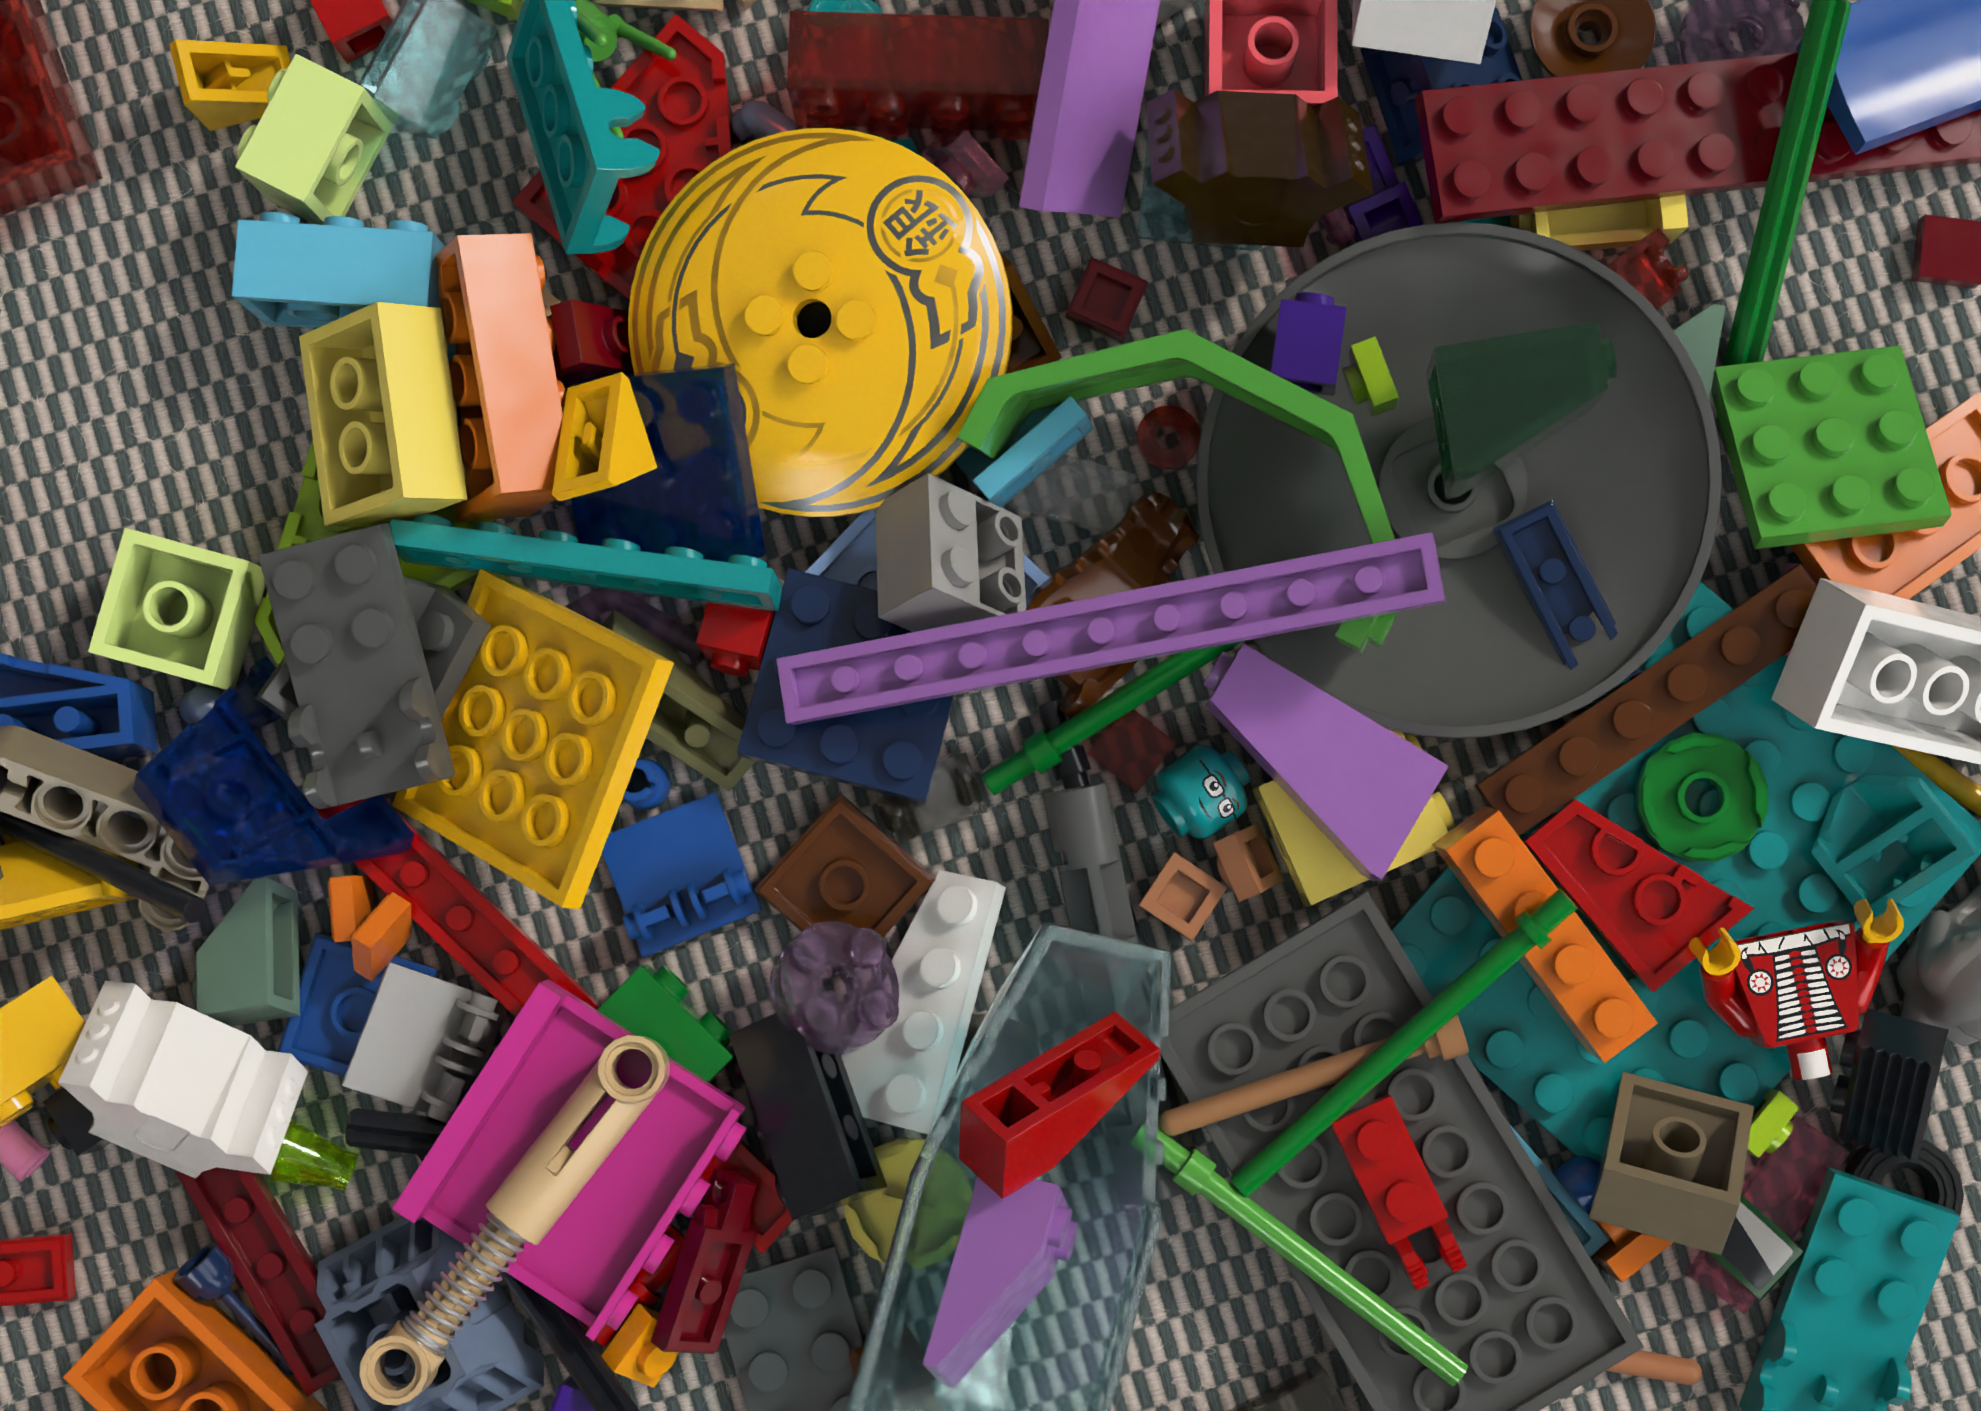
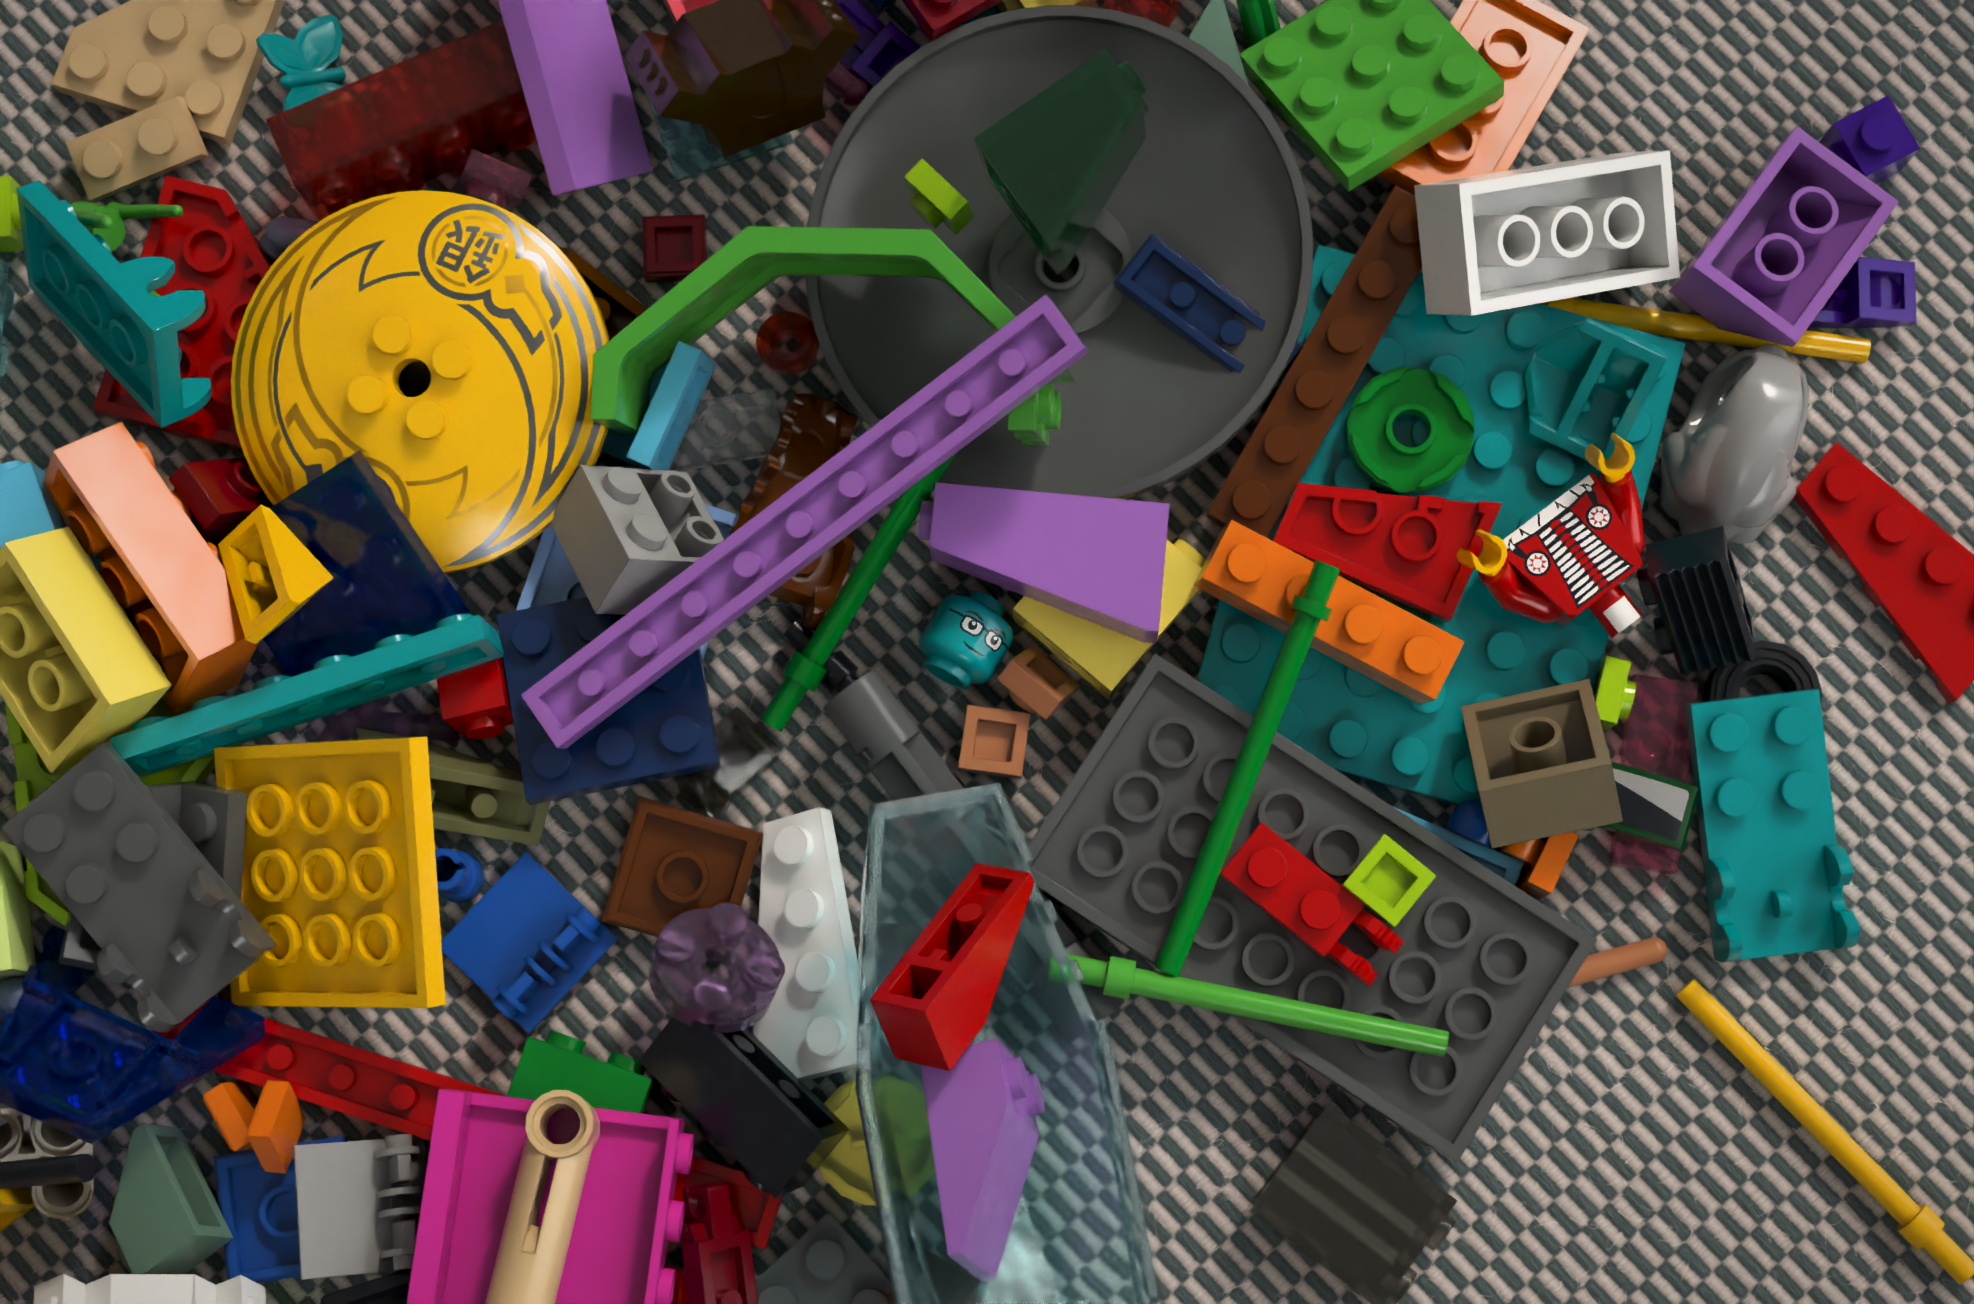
camera: 25 degrees left, 5 degrees down
(1131, 749) = (886, 634): clear red tile -> none
(1309, 342) = (867, 189): dark purple brick -> none
(1447, 1043) = (1286, 749): medium nougat piece -> none
(1480, 1205) = (1388, 881): none -> lime plate

